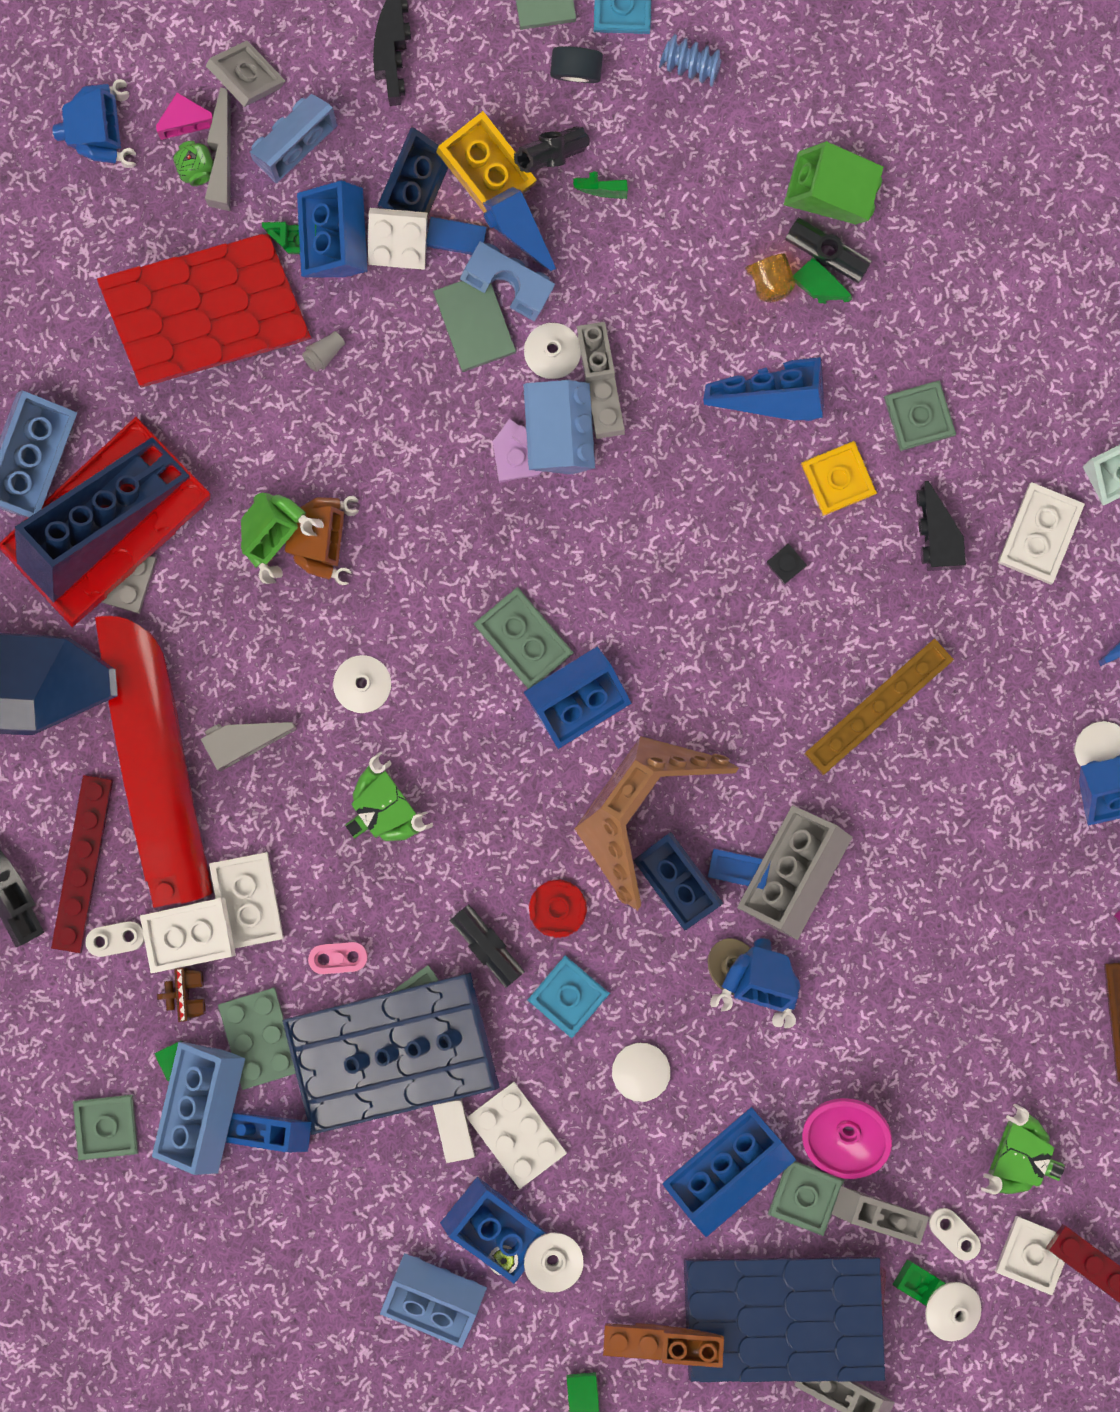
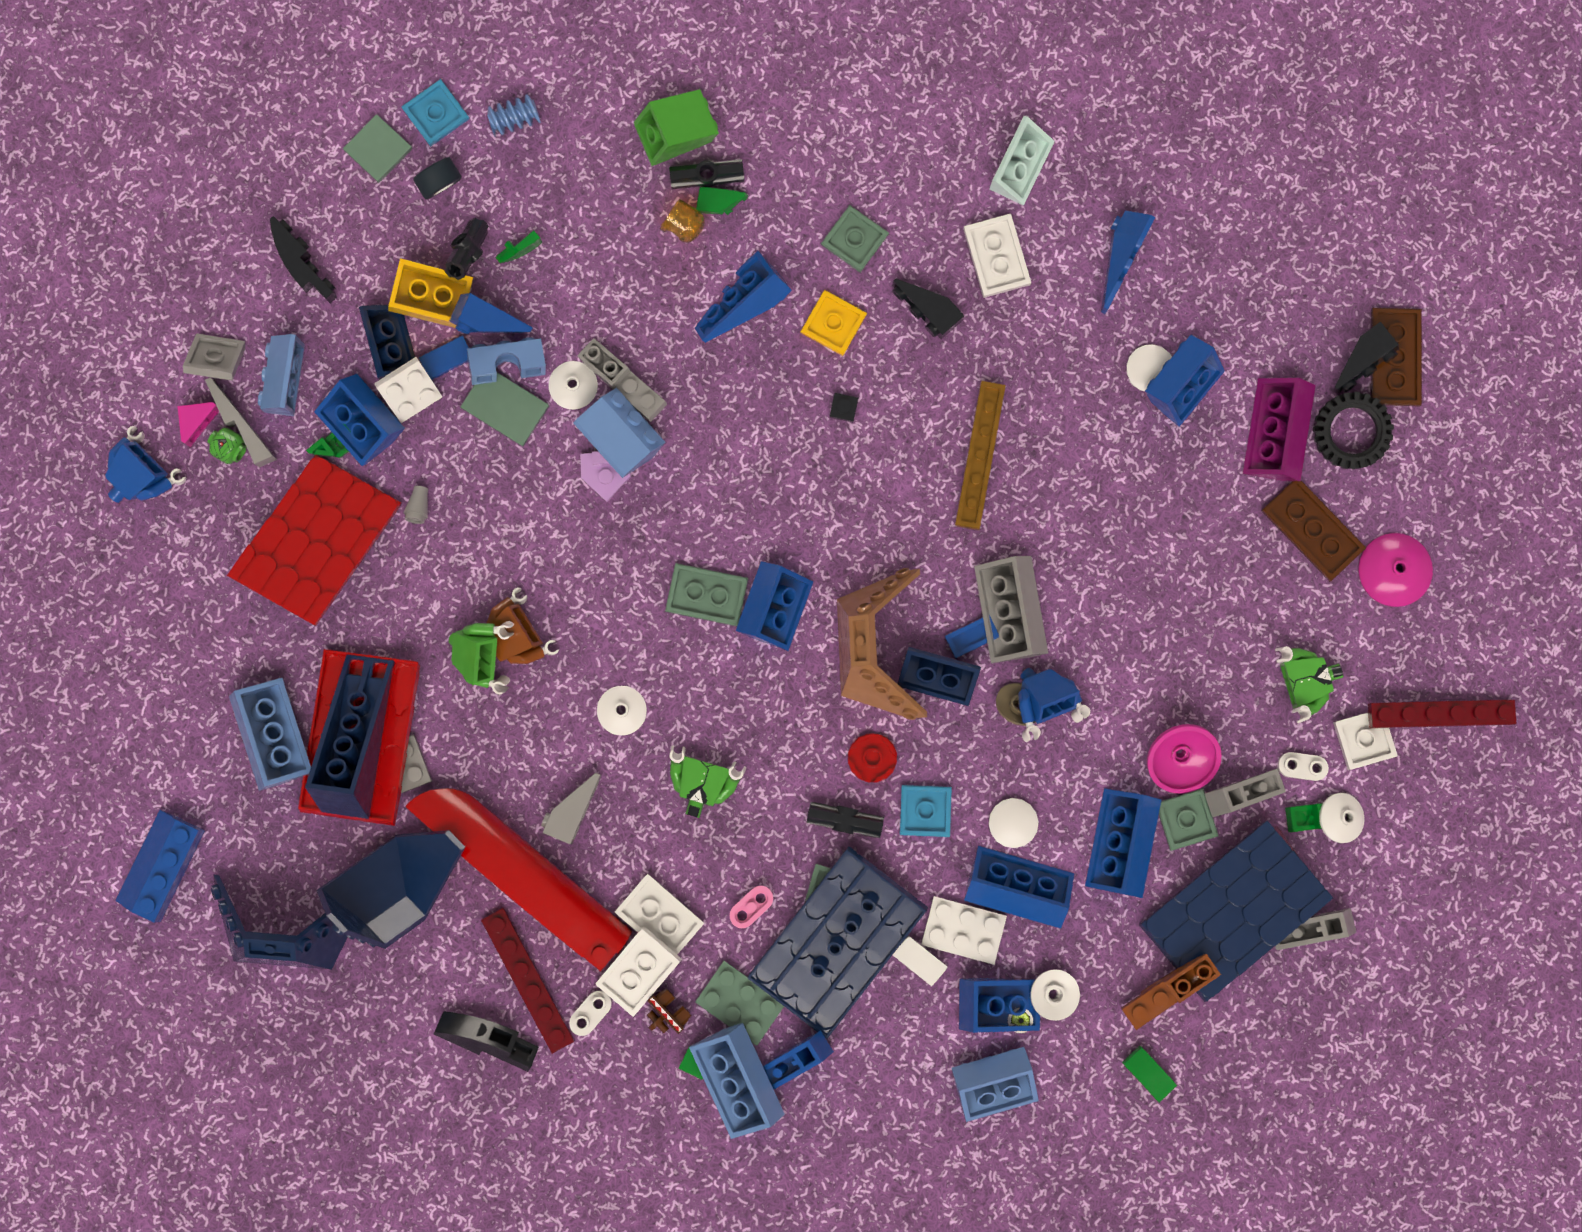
camera: 40 degrees left, 0 degrees up
(105, 1127) = (684, 1144): sand green tile -> none
(599, 1136) = (1019, 887): none -> blue slope

